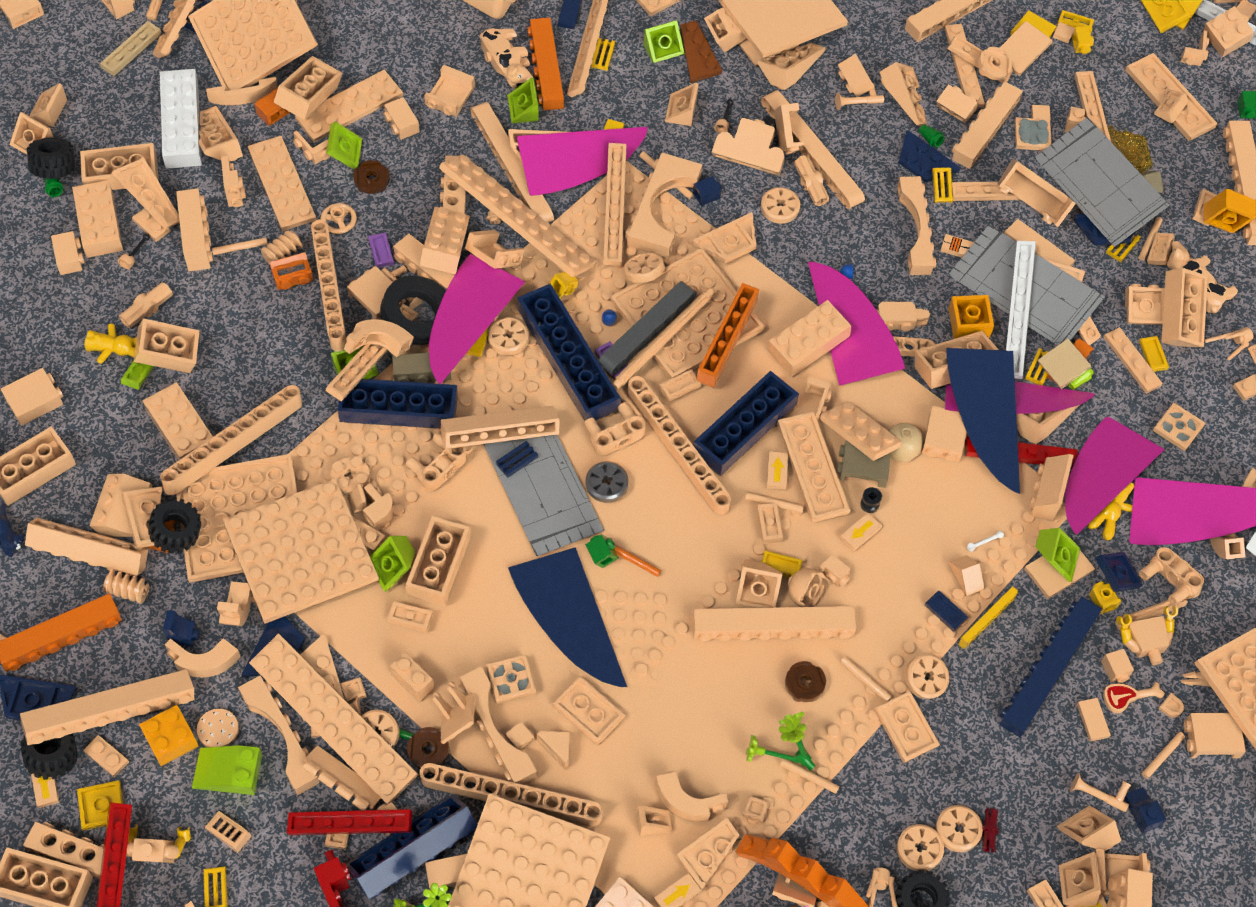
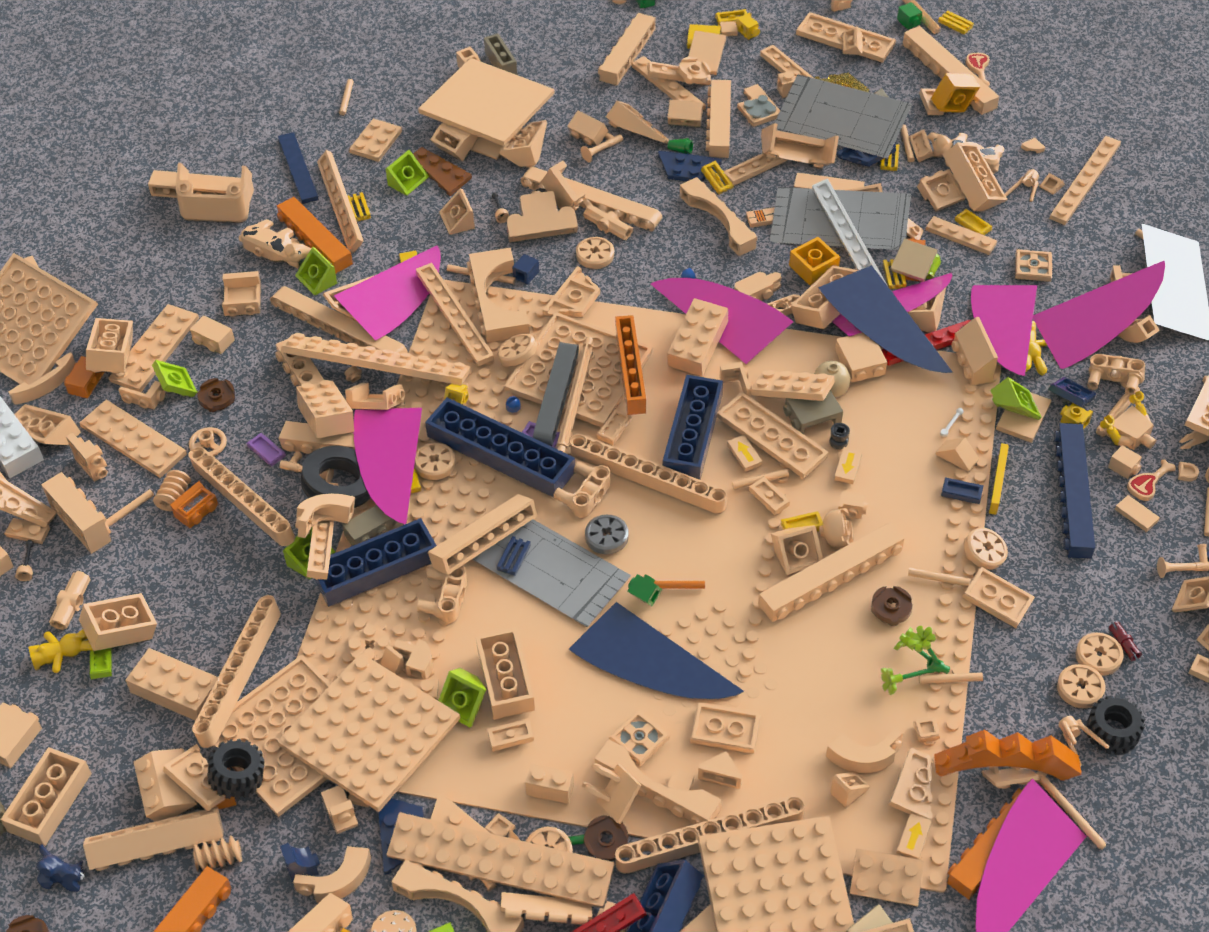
camera: 25 degrees left, 10 degrees down
(370, 290) = (282, 483): light nougat panel -> none

